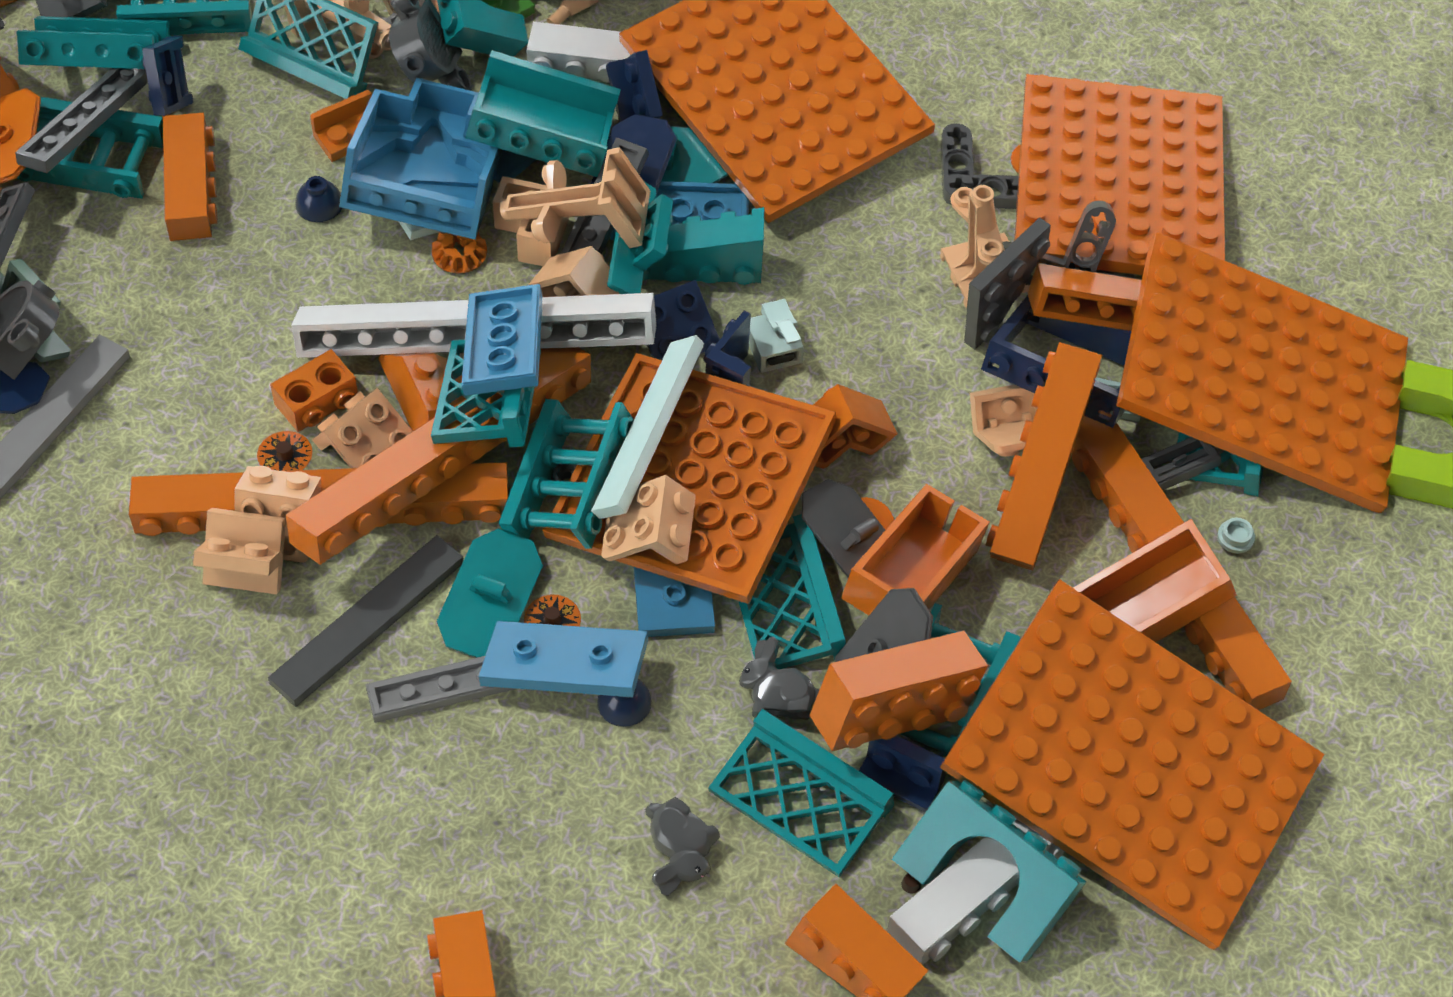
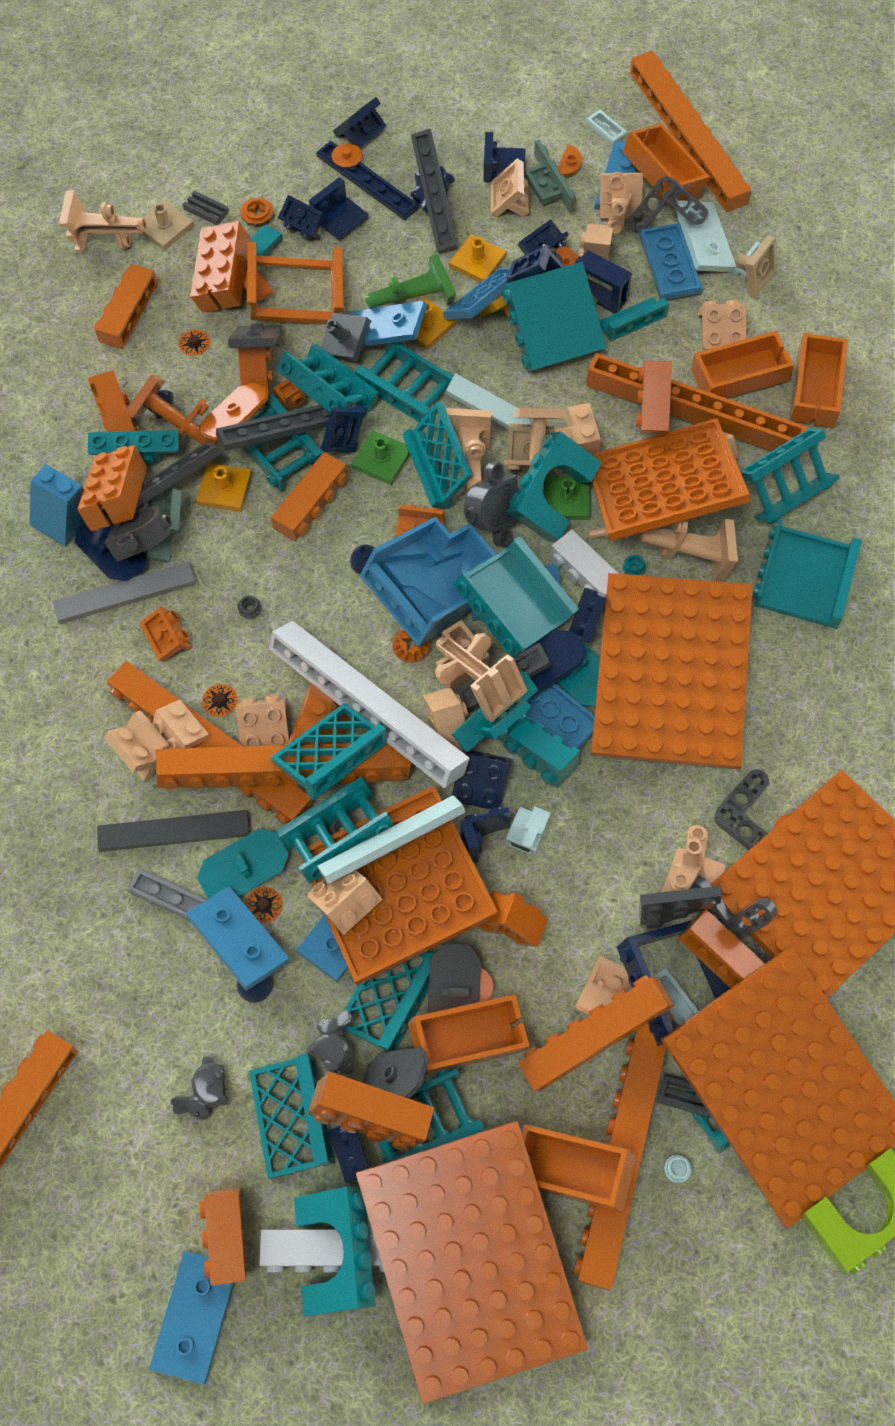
camera: 45 degrees right, 10 degrees up
(54, 85) = (289, 394): none -> orange bracket
(64, 233) = (224, 487): none -> light orange tile
(145, 426) = (165, 633): none -> orange bracket
(222, 326) = (249, 601): none -> dark grey plate
(233, 89) = (381, 457): none -> bright green tile
(308, 391) = (262, 670): orange brick -> none
(502, 340) = (354, 729): dark azure plate -> none
(627, 18) = (634, 560): none -> teal plate

